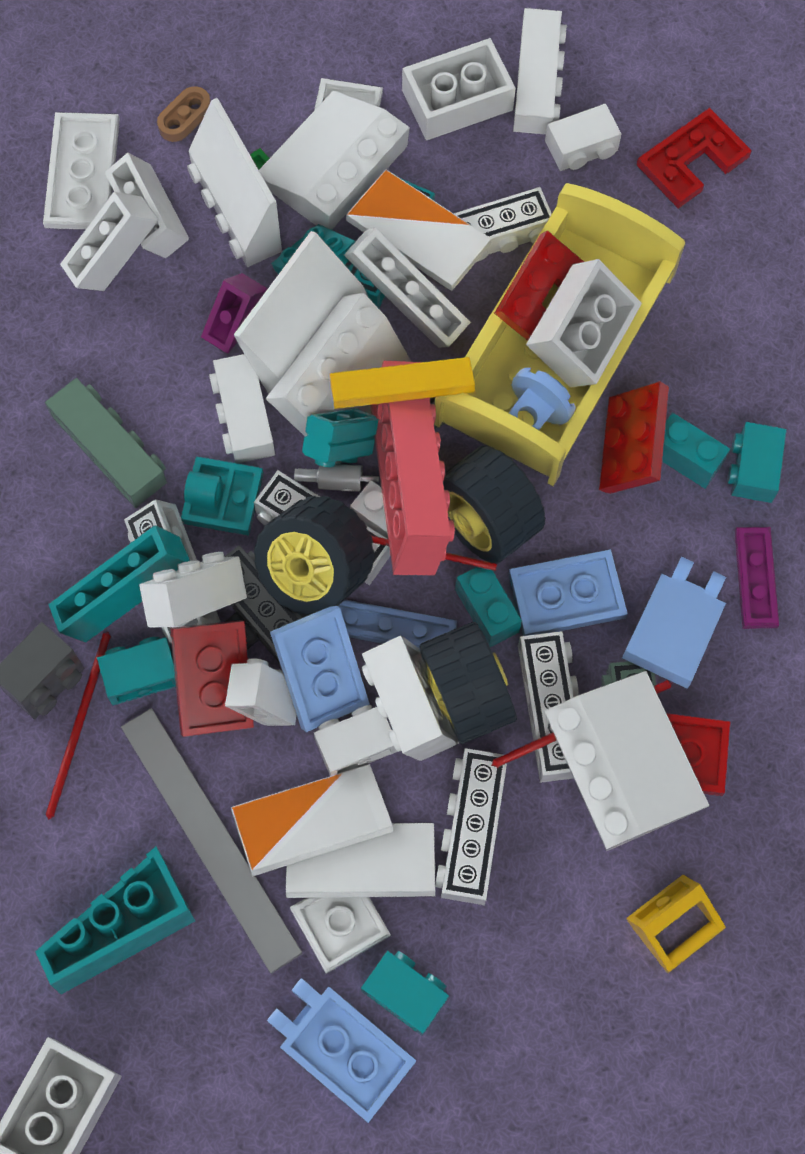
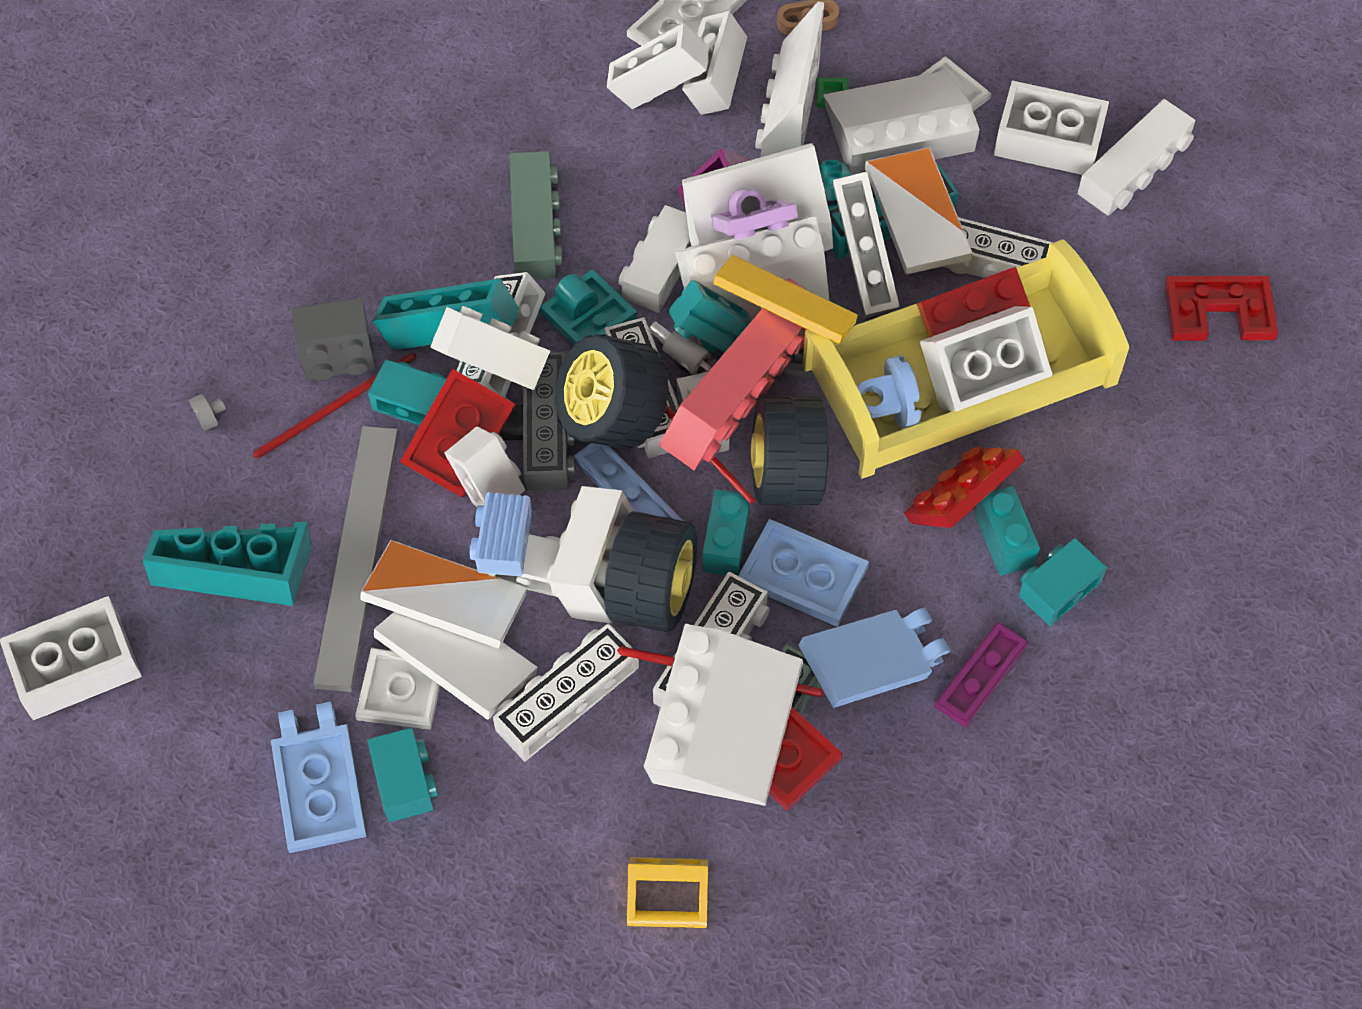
camera: 40 degrees right, 10 degrees down
(320, 667) = (551, 471): light blue plate -> none
(321, 326) = (768, 214): none -> lavender plate
(328, 739) = (503, 534): none -> light blue brick
(583, 138) = (1131, 231): white brick -> none

